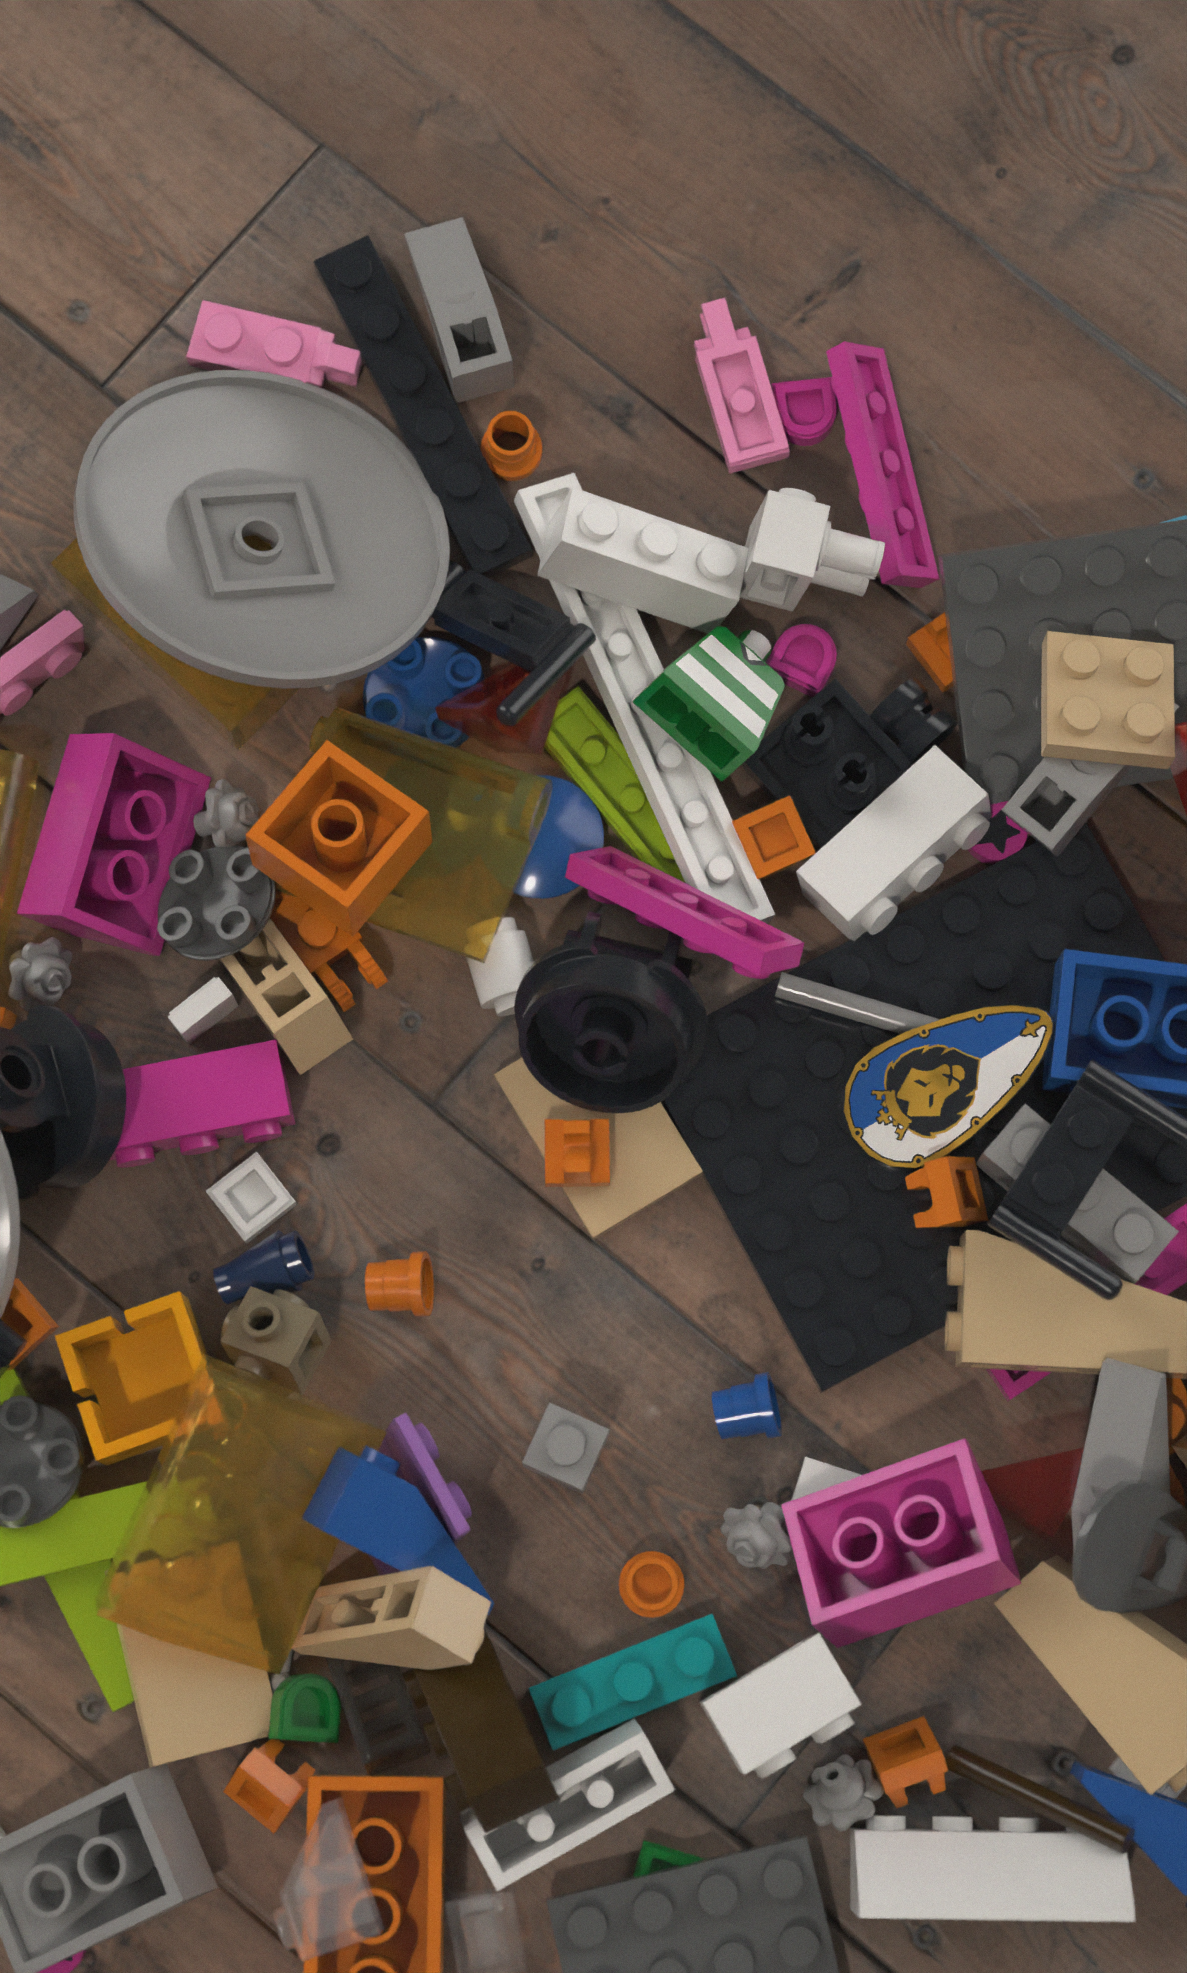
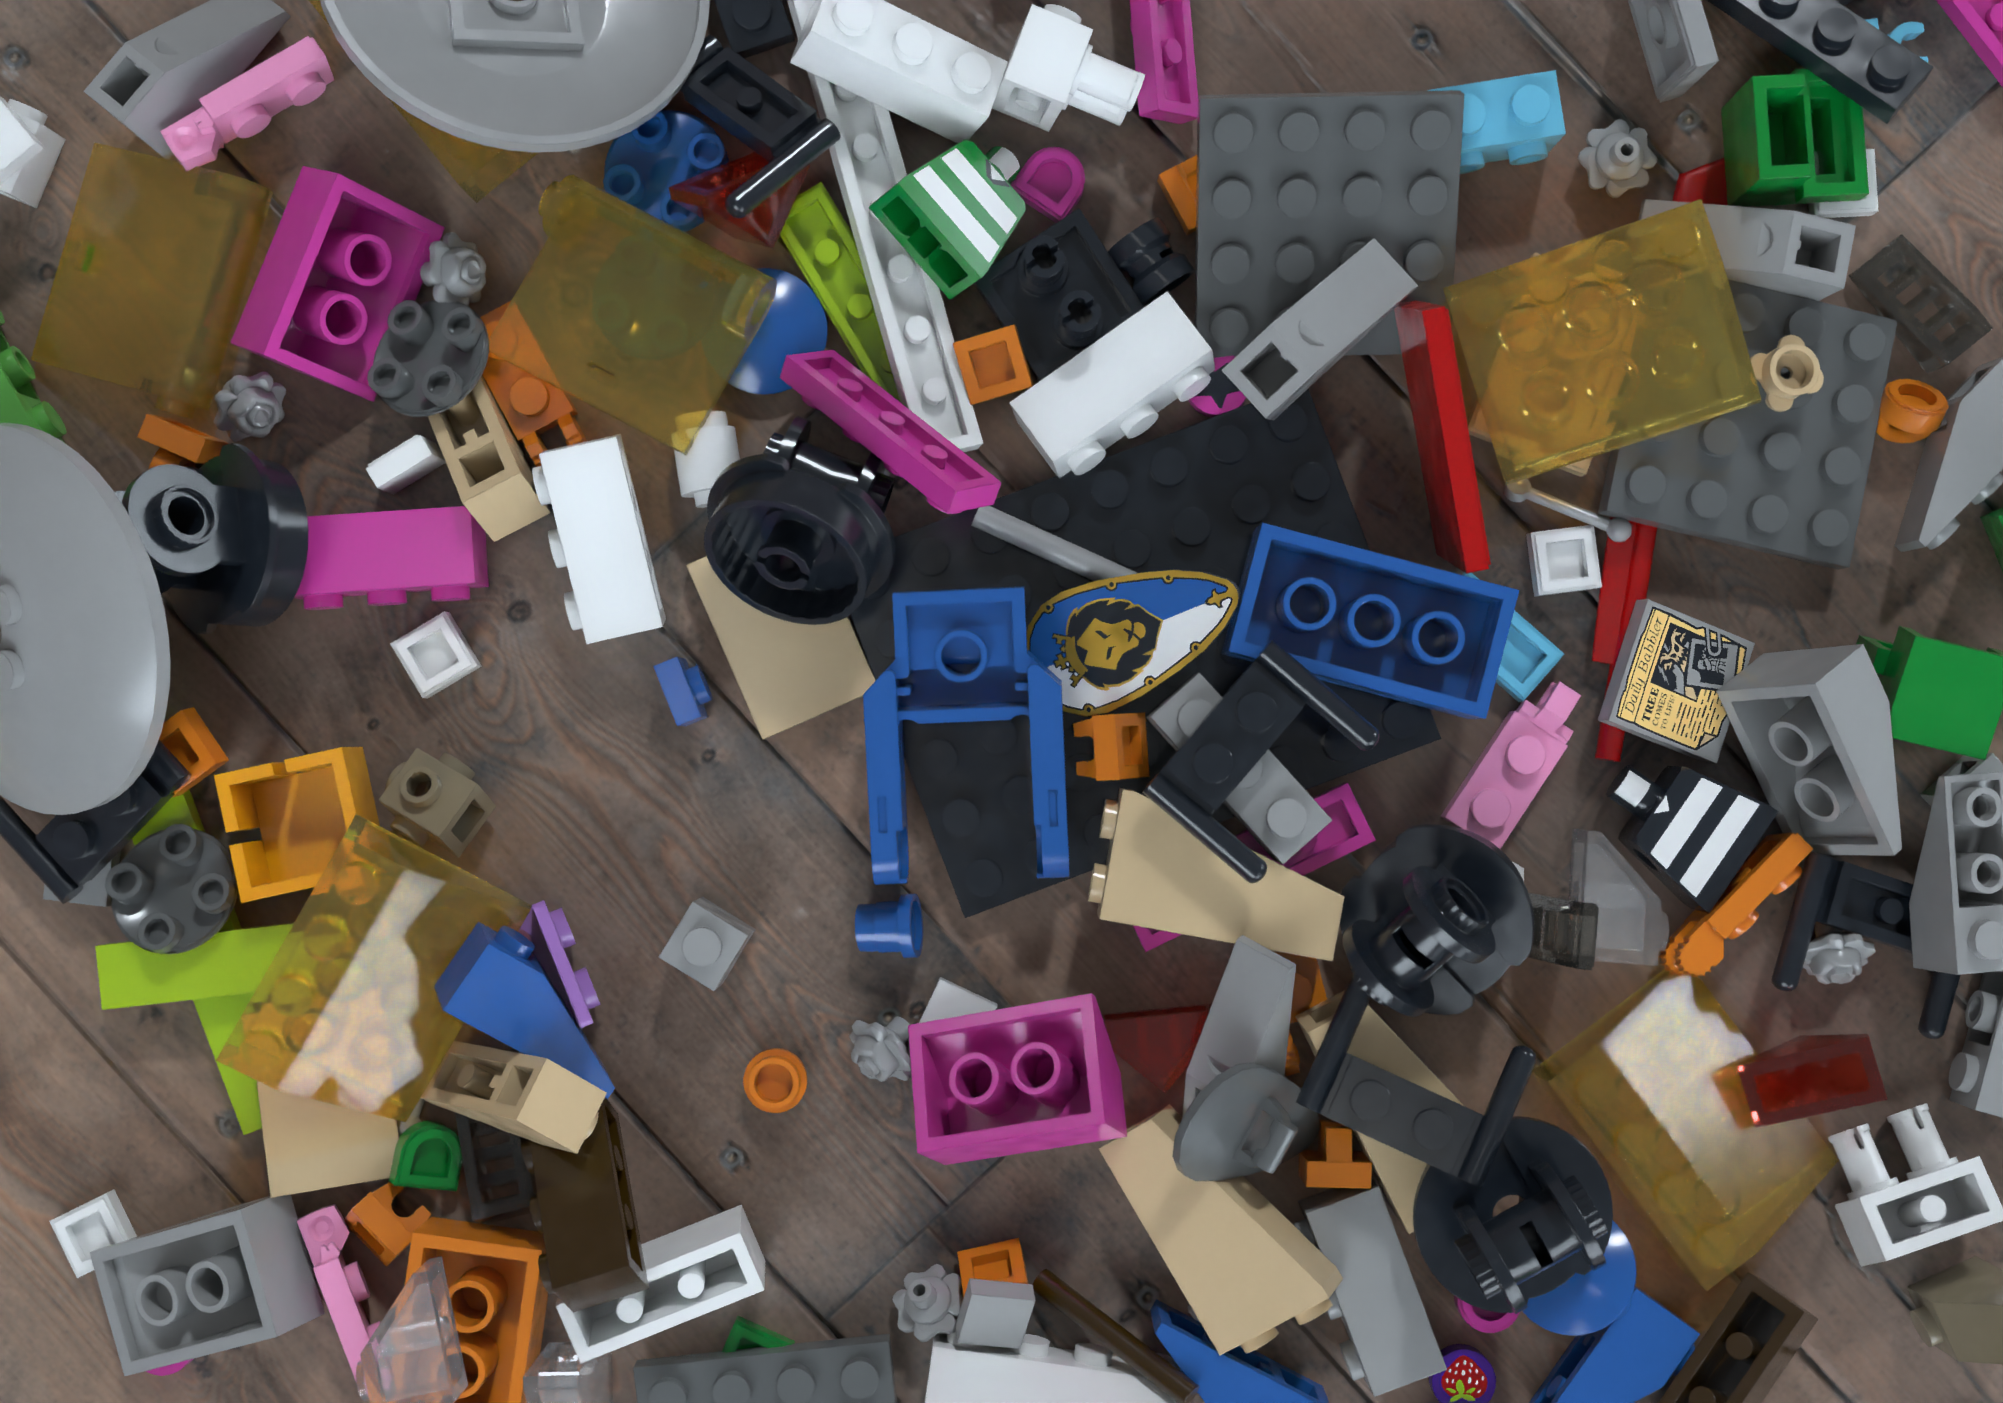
camera: 10 degrees right, 10 degrees up
(234, 1860) = (340, 1284): none -> bright pink hinge
(270, 1265) = (446, 726): dark blue cone -> none
(339, 838) = (550, 311): orange brick -> none
(401, 1285) = (570, 761): orange piece -> none
(408, 1057) = (599, 539): none -> white brick
(509, 1197) = (684, 690): none -> blue plate
(577, 1153) = (756, 655): orange tile -> none
(632, 1681) = (745, 1169): teal plate -> none
(781, 1705) = (876, 1222): white brick -> none
(790, 1125) = (962, 661): none -> blue plate
(913, 1785) = (995, 1313): none -> light grey tile
(1107, 700) = (1346, 270): tan plate -> none

